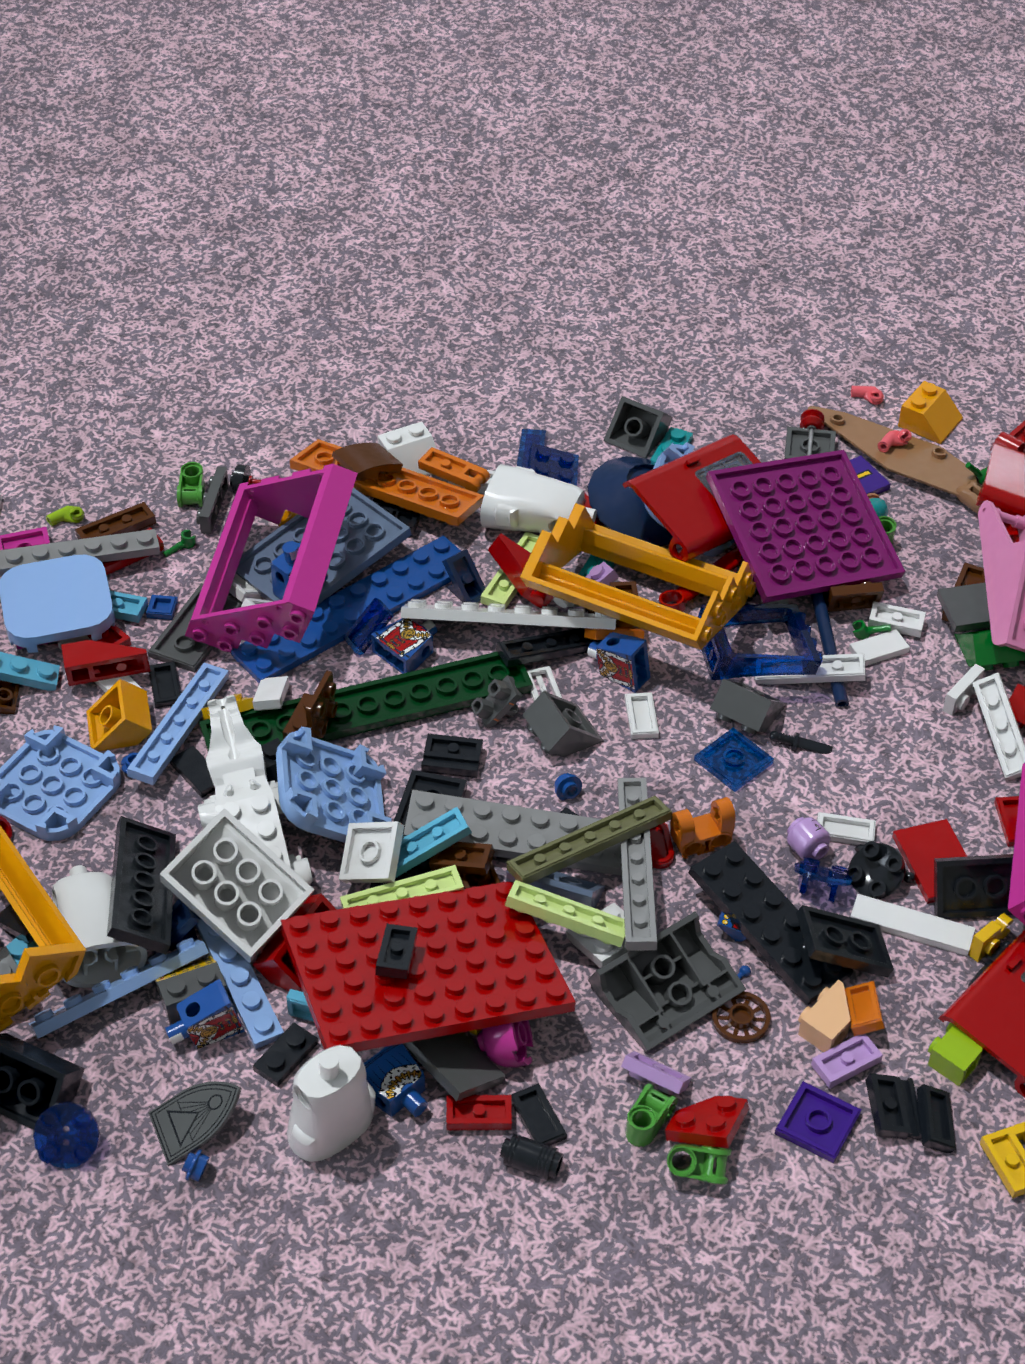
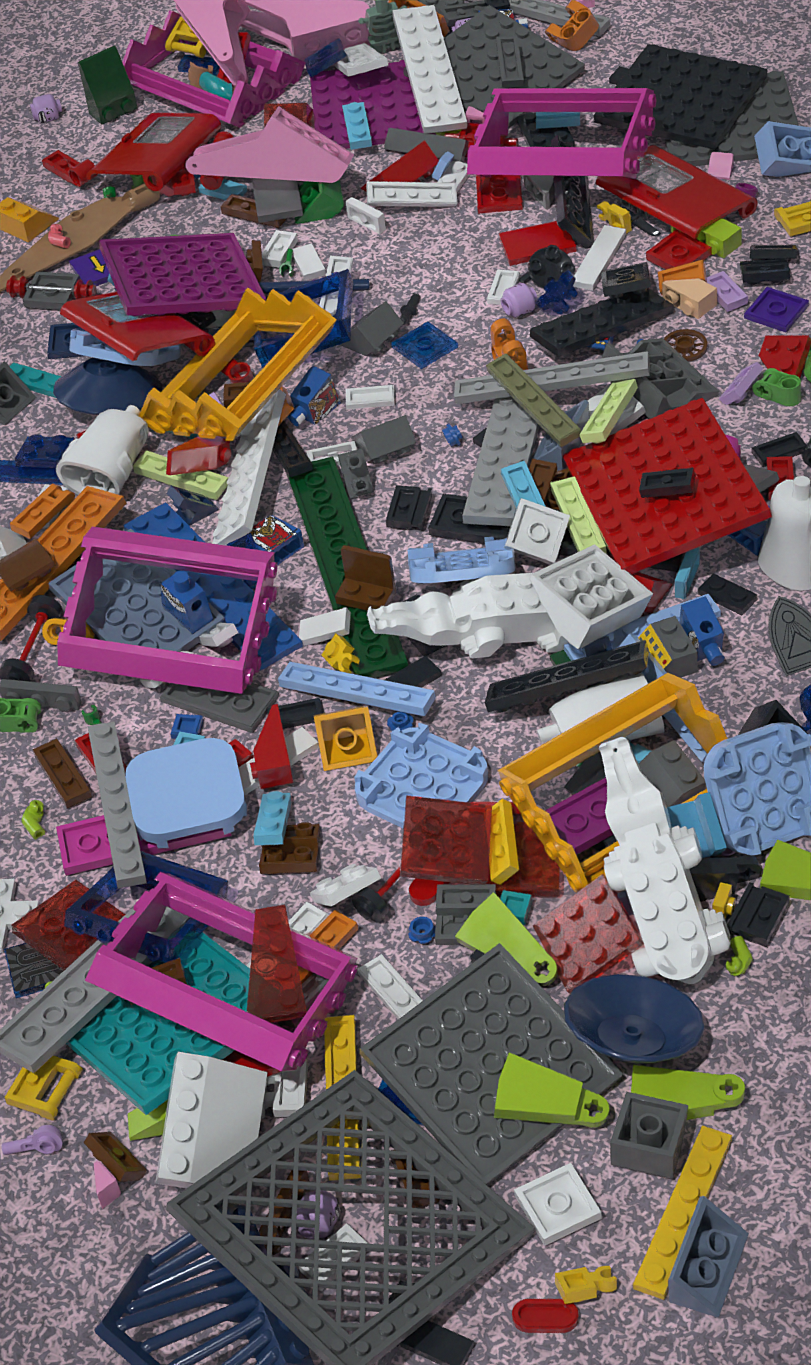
camera: 80 degrees left, 0 degrees up
(918, 1006) = (678, 250): none -> red plate

